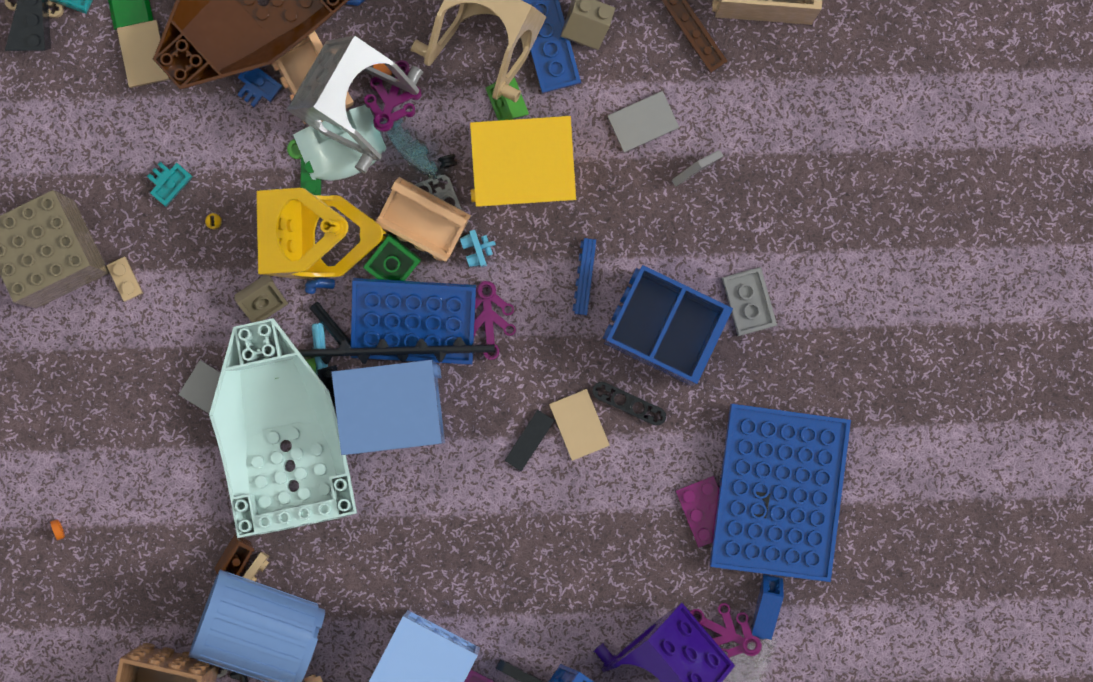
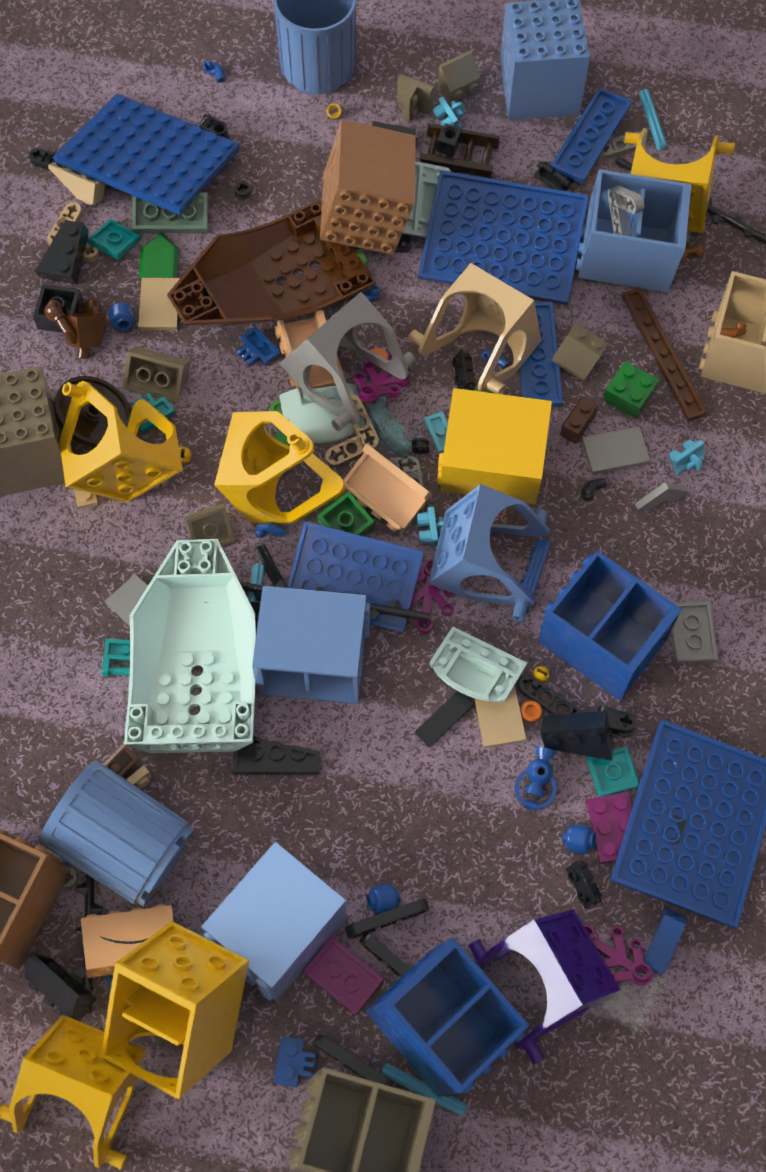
camera: 15 degrees right, 20 degrees down
(41, 87) = (70, 300): none -> black brick
(73, 109) = (81, 329): none -> reddish brown torso
(108, 80) = (121, 316): none -> blue head
(110, 199) = (91, 422): none -> dark brown dish
(156, 263) = (121, 462): none -> yellow piece
(161, 138) = (155, 374): none -> dark tan slope
(205, 442) = (117, 651): none -> teal plate
(380, 515) = (274, 758): none -> black wing
(384, 168) = (358, 440): none -> tan beam
(461, 139) = (437, 429): none -> medium azure plate
(470, 57) = (462, 363): none -> black hinge
(499, 41) = (502, 362): none -> blue arm
(508, 625) = (382, 898): none -> blue head
(513, 269) = (466, 548): none -> medium blue piece
(516, 642) = (387, 918): none -> black beam
(549, 387) = (476, 667): none -> light aqua slope
(600, 98) = (579, 420): none -> reddish brown brick
(609, 416) = (531, 711): none -> orange tile
(610, 380) = (540, 676): none -> yellow hinge
(625, 167) = (590, 487): none -> black arm
(627, 483) = (535, 788): none -> blue piece
(647, 52) = (630, 389): none -> green brick
(657, 433) = (579, 734): none -> black wedge
(675, 531) = (579, 839): none -> blue head
(684, 410) = (617, 719): none -> black piece
(692, 579) = (587, 893): none -> black hinge
(695, 458) = (614, 775): none -> teal tile
(719, 117) = (689, 458): none -> medium azure hips

